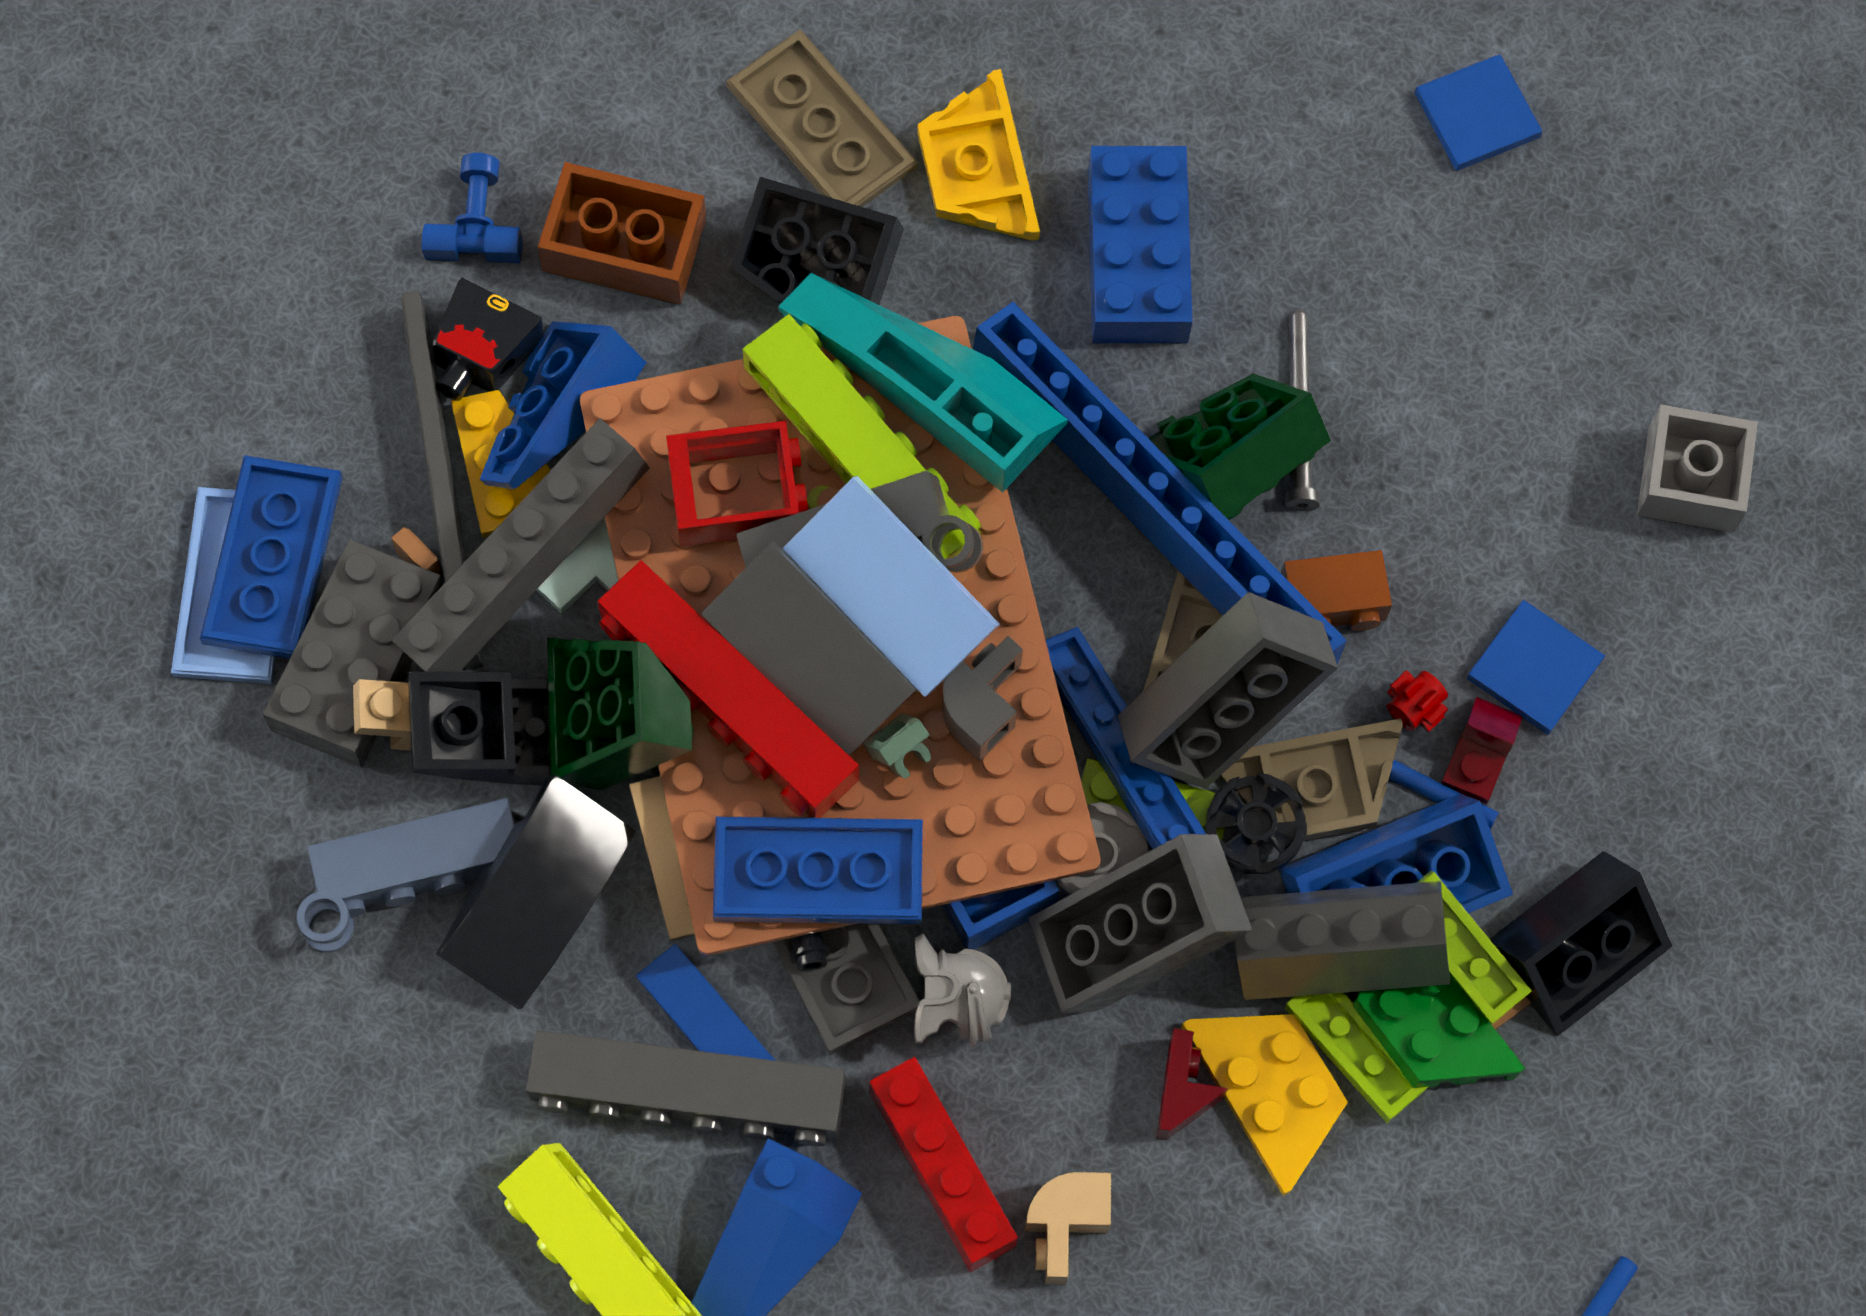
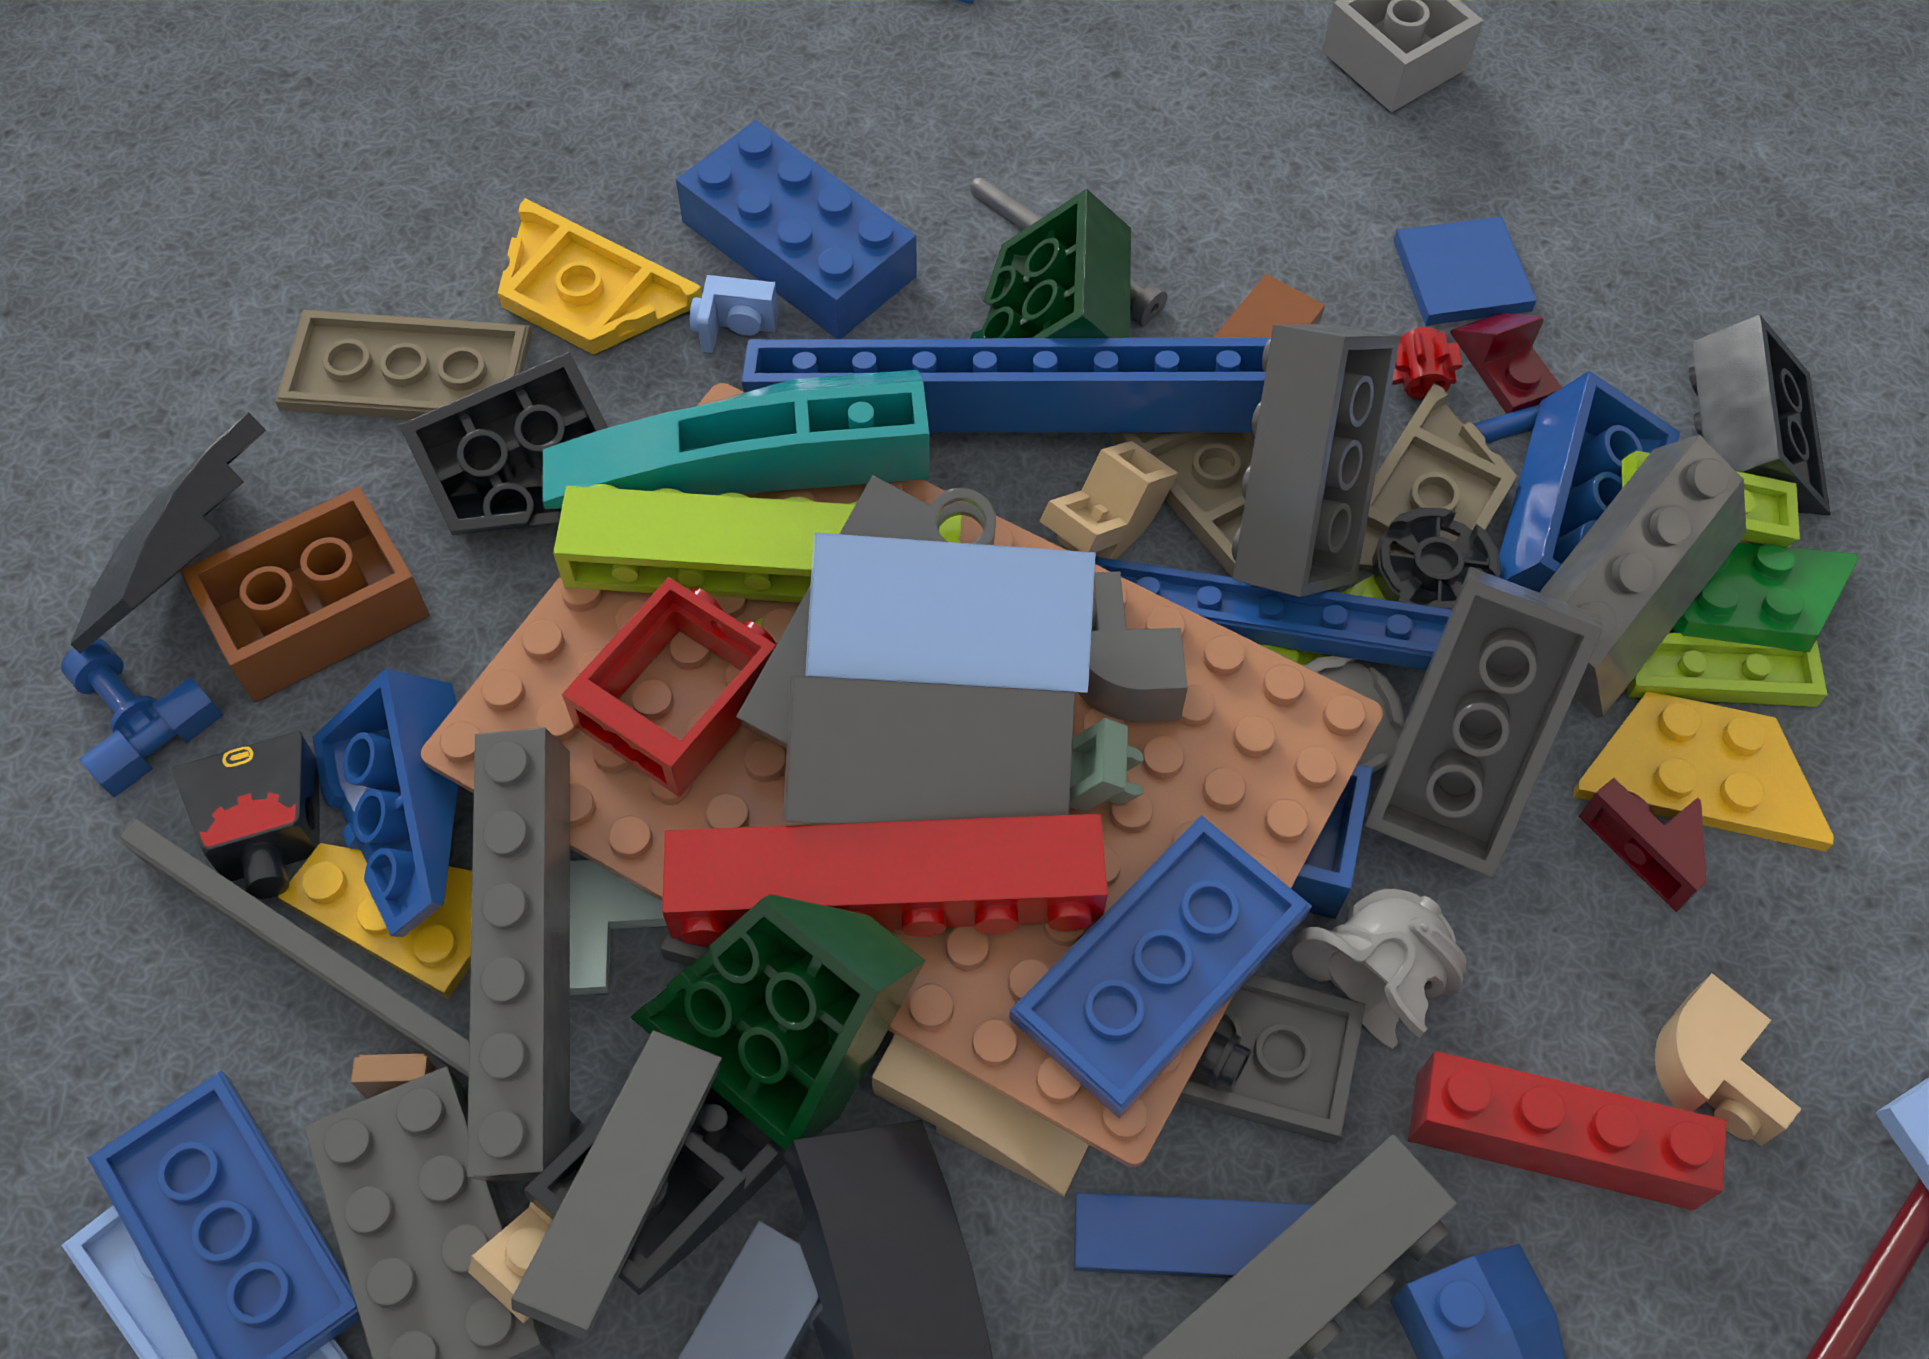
camera: 45 degrees left, 10 degrees down
(454, 710) = (616, 1187): none -> dark grey tile
(574, 130) = (166, 534): none -> black slope
(1049, 266) = (733, 303): none -> light blue bracket
(1115, 607) = (1114, 504): none -> tan brick

